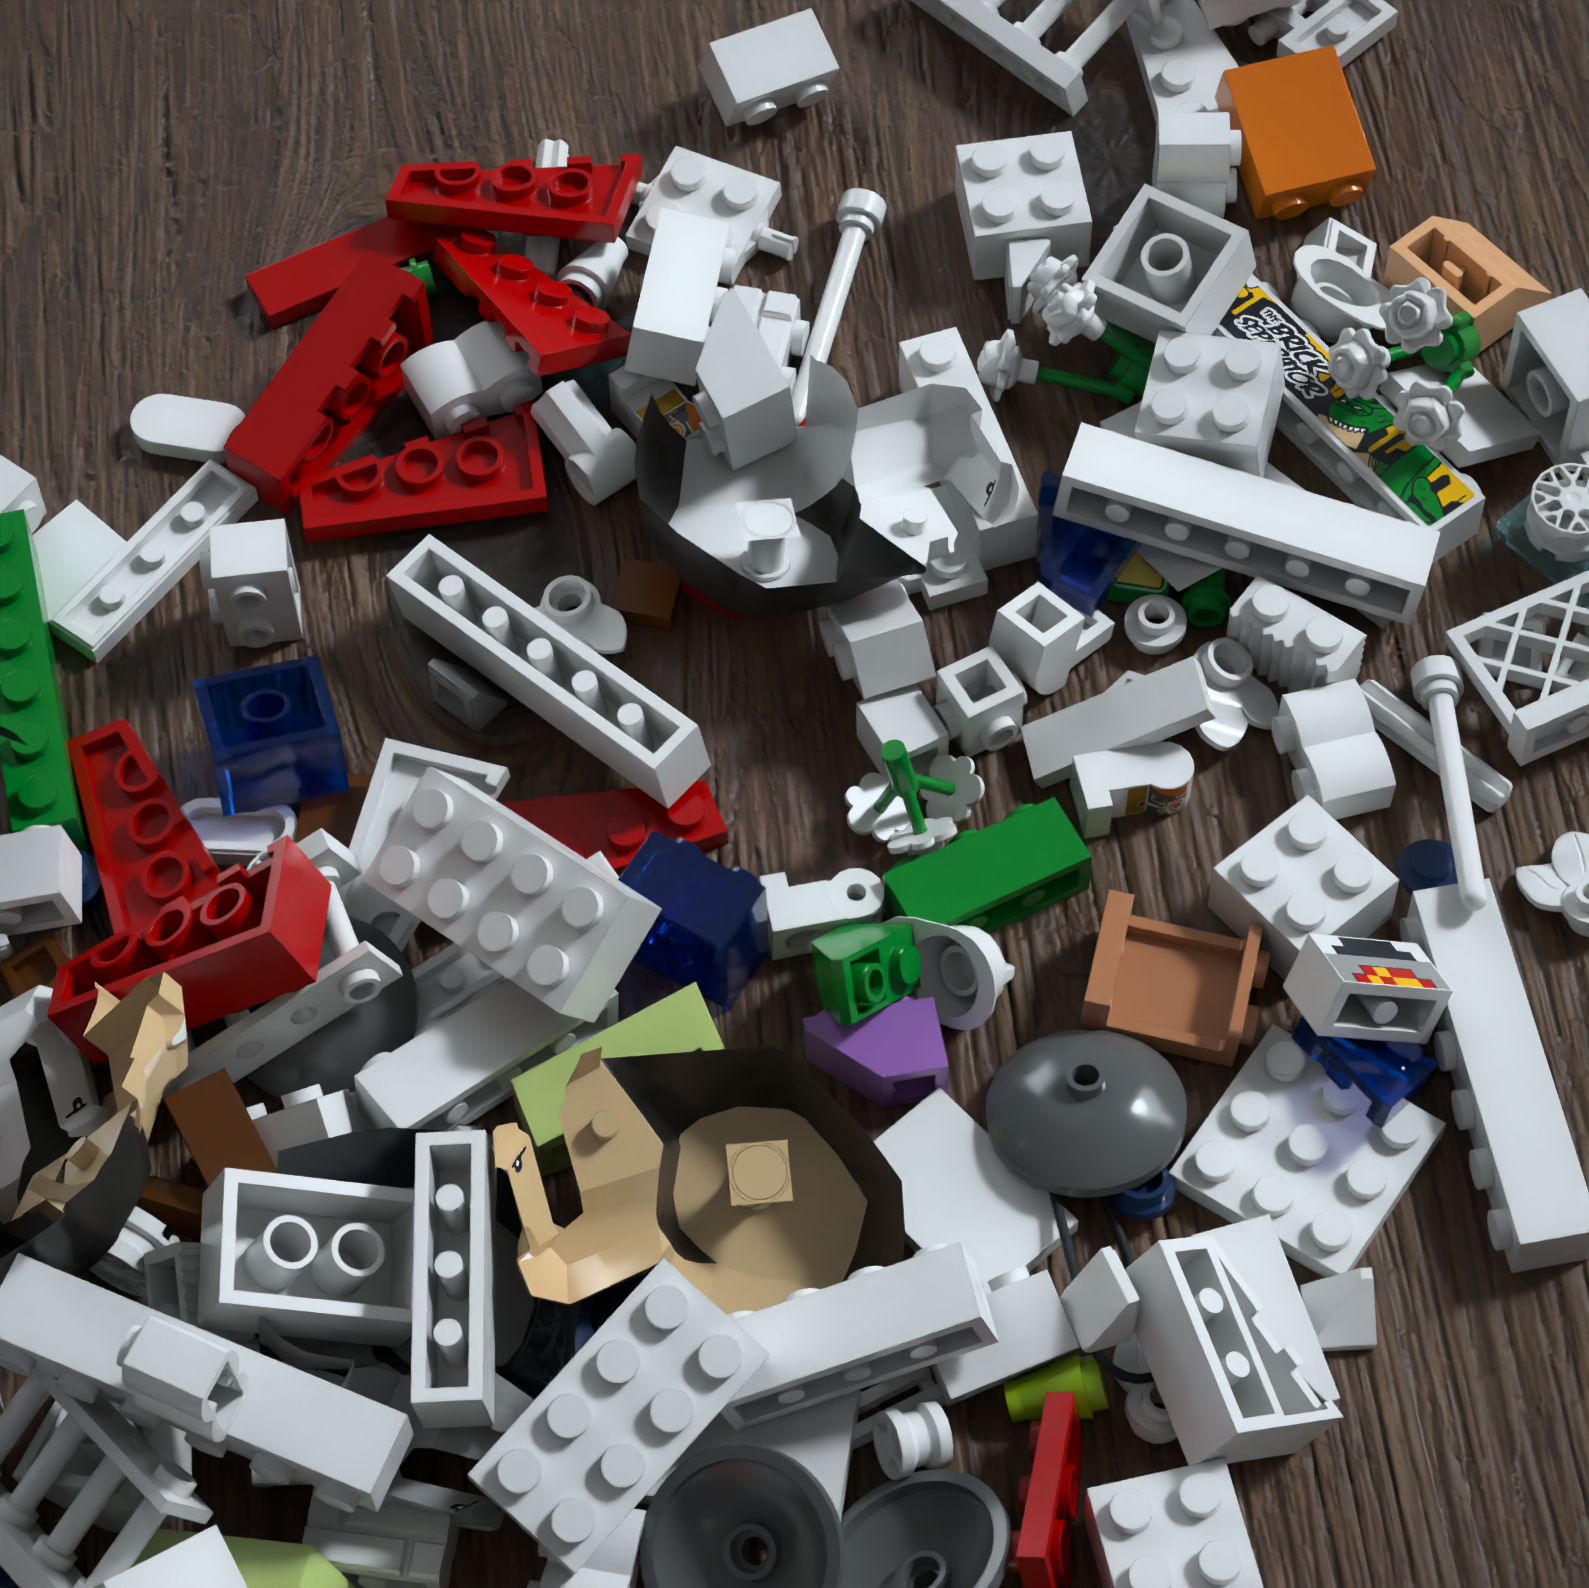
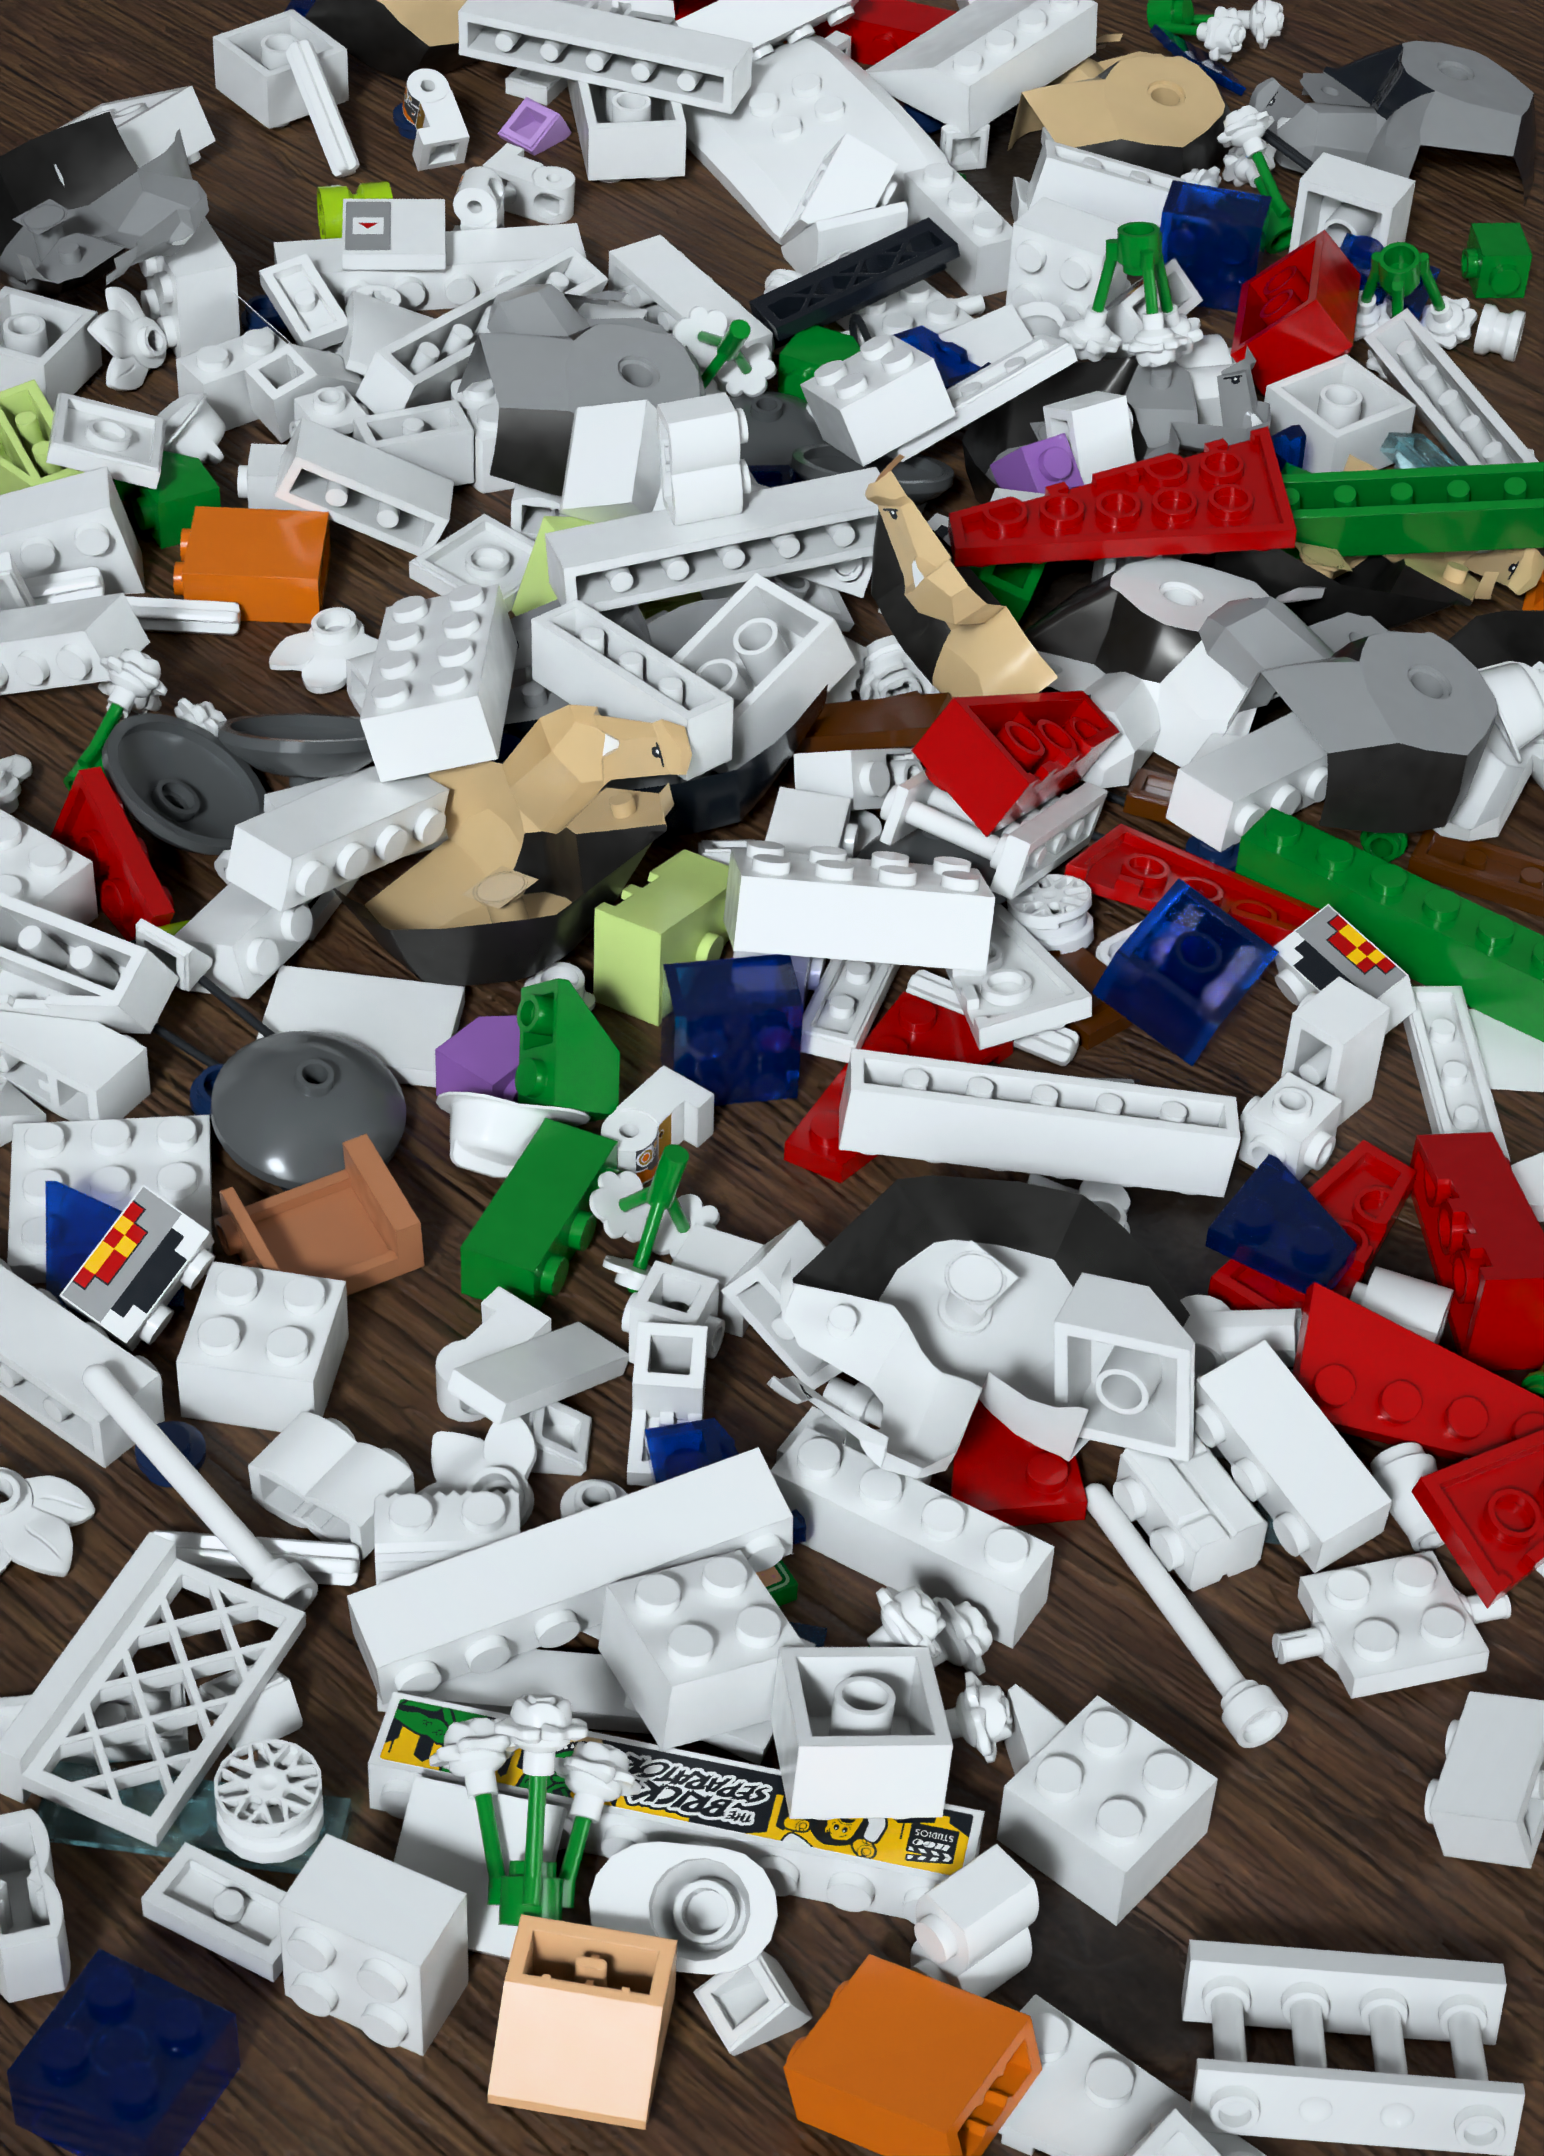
camera: 135 degrees right, 15 degrees down
(146, 664) = (1332, 948): none -> brick
(352, 564) = (1292, 1124): none -> white brick
(461, 484) = (1282, 1231): none -> clear blue wing

